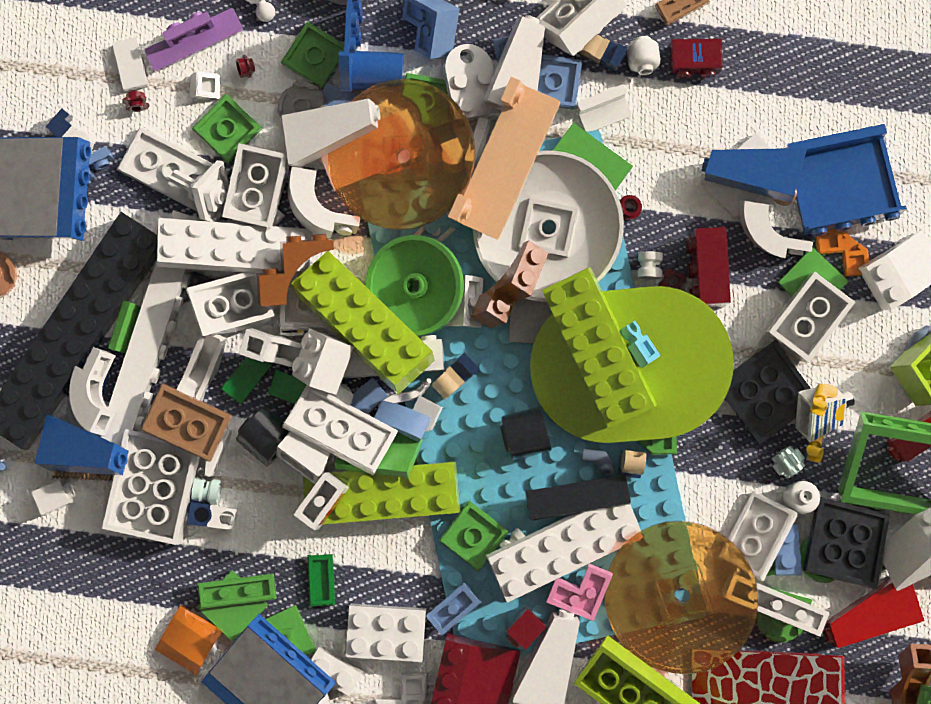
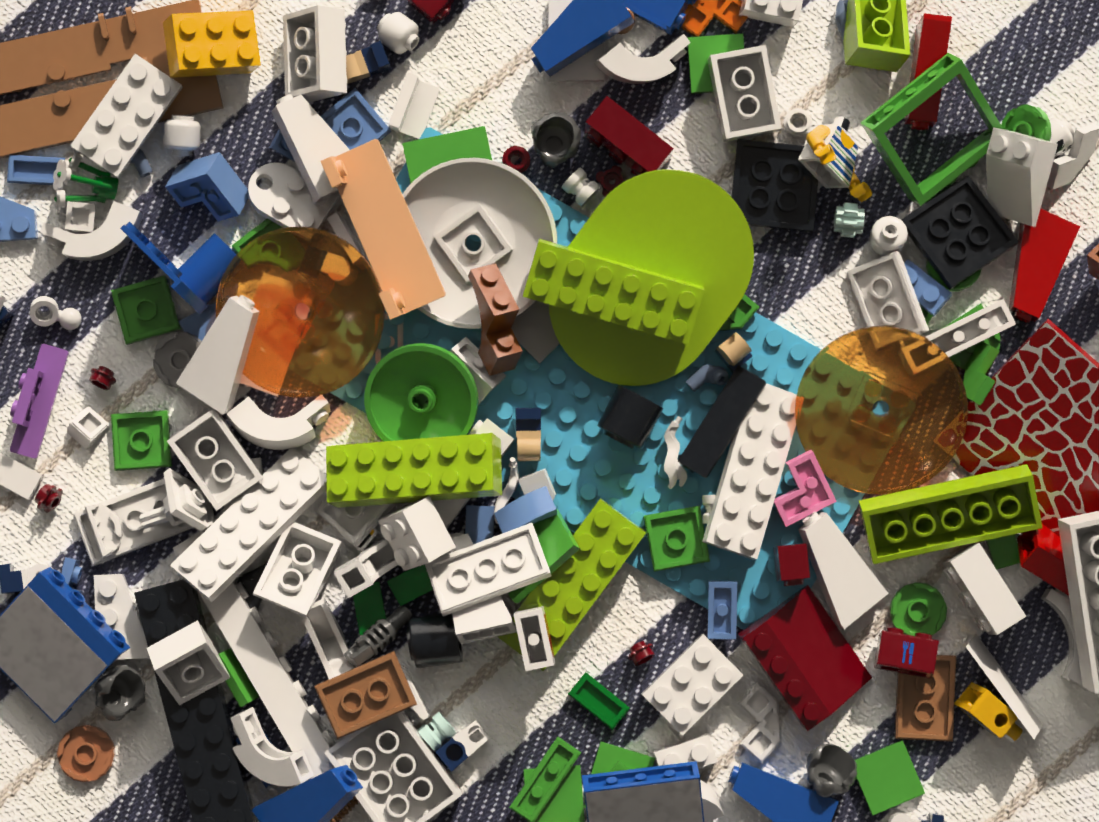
camera: 45 degrees left, 0 degrees up
(48, 260) = (119, 692): none -> dark grey hair
(100, 214) = (119, 610): none -> white wing
(103, 286) = (187, 663): none -> white slope
(148, 155) = (106, 528): none -> white tile
(232, 396) = (377, 637): none -> dark grey hinge
(273, 285) = (303, 475): dark orange arch -> none
(377, 580) = (641, 653): none -> dark red plate
(518, 490) = (671, 465): none -> white hair
(641, 346) = (644, 256): medium azure plate -> none
(667, 220) = (556, 138): none -> dark grey hair
(757, 643) = (975, 379): none -> bright green tile
(829, 366) = (800, 114): none -> white plate

